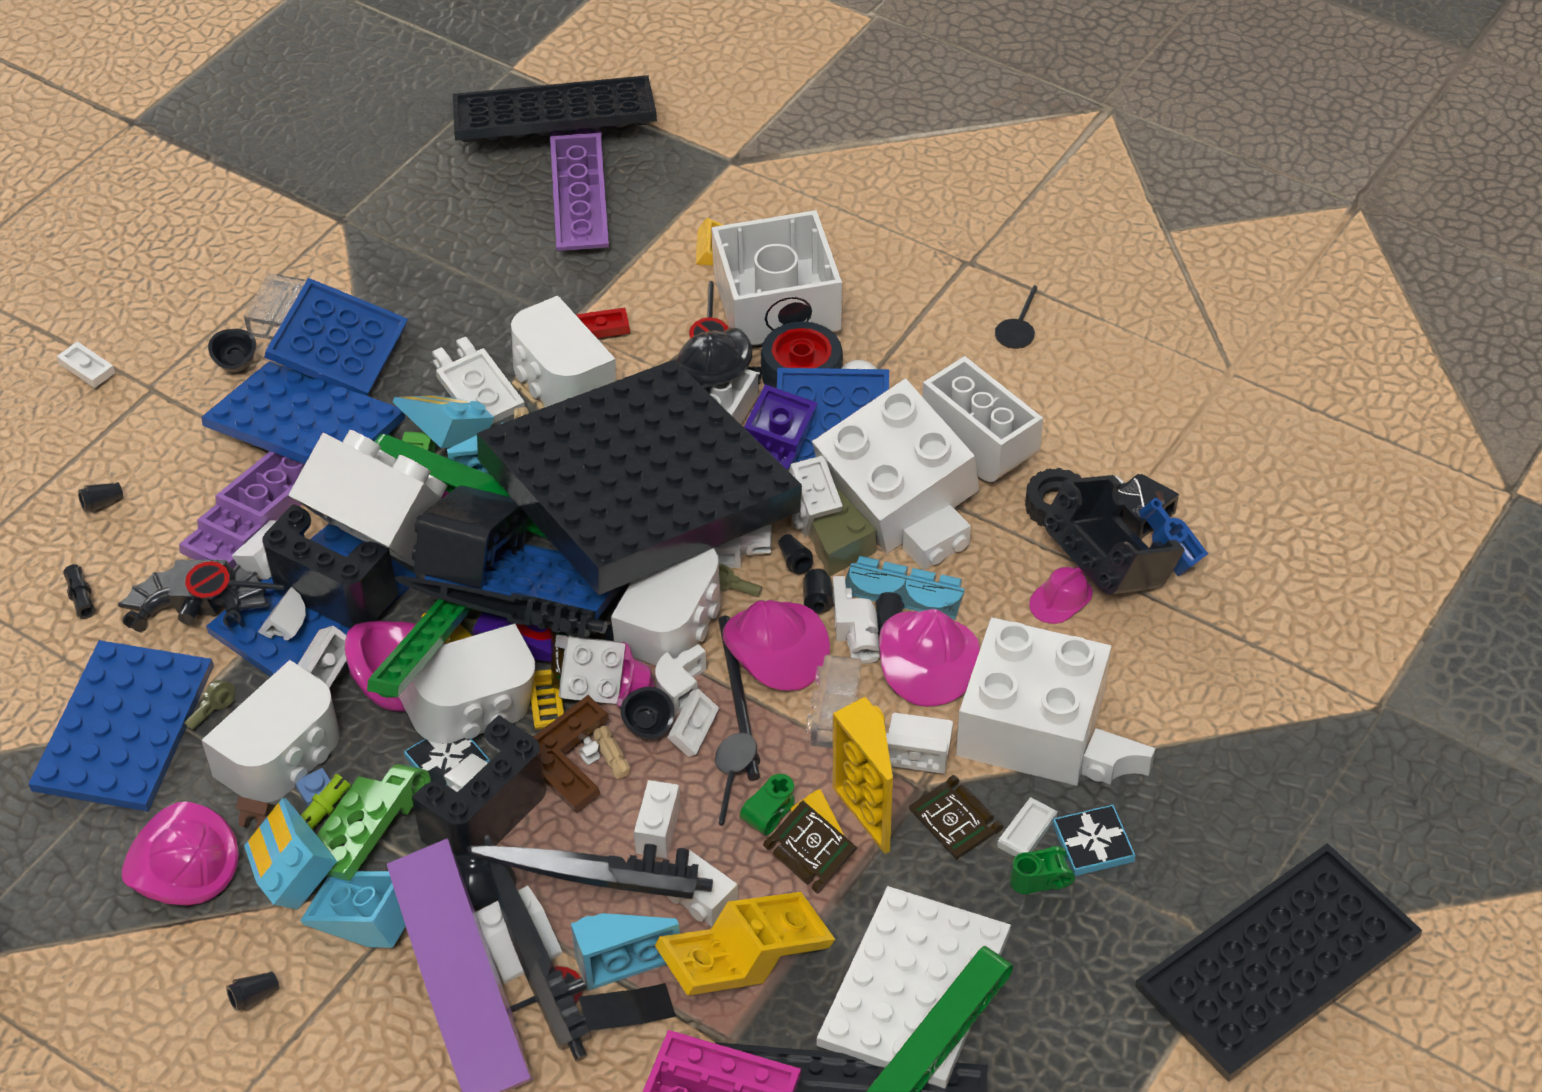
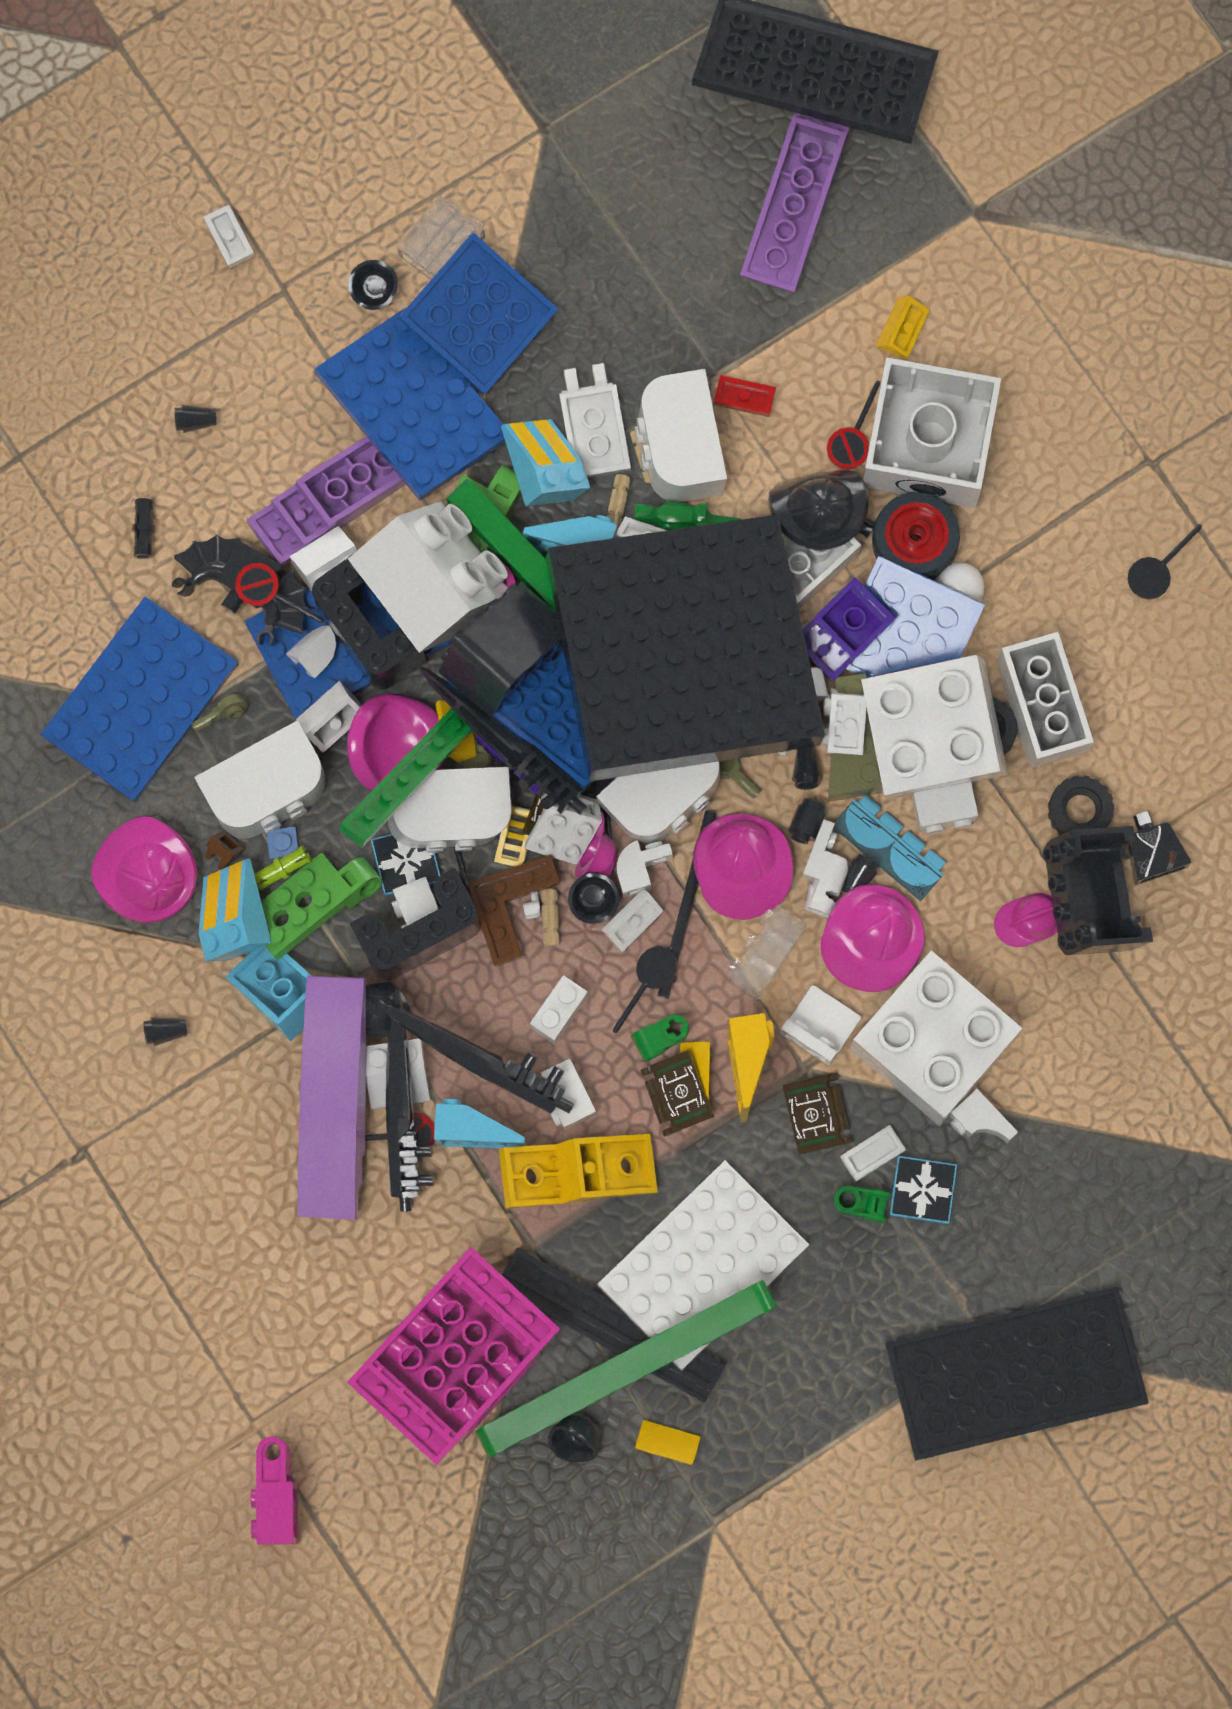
camera: 25 degrees right, 30 degrees up
(626, 1007) = (459, 1183): black sticker -> none
(1173, 529) = (1162, 921): blue piece -> none

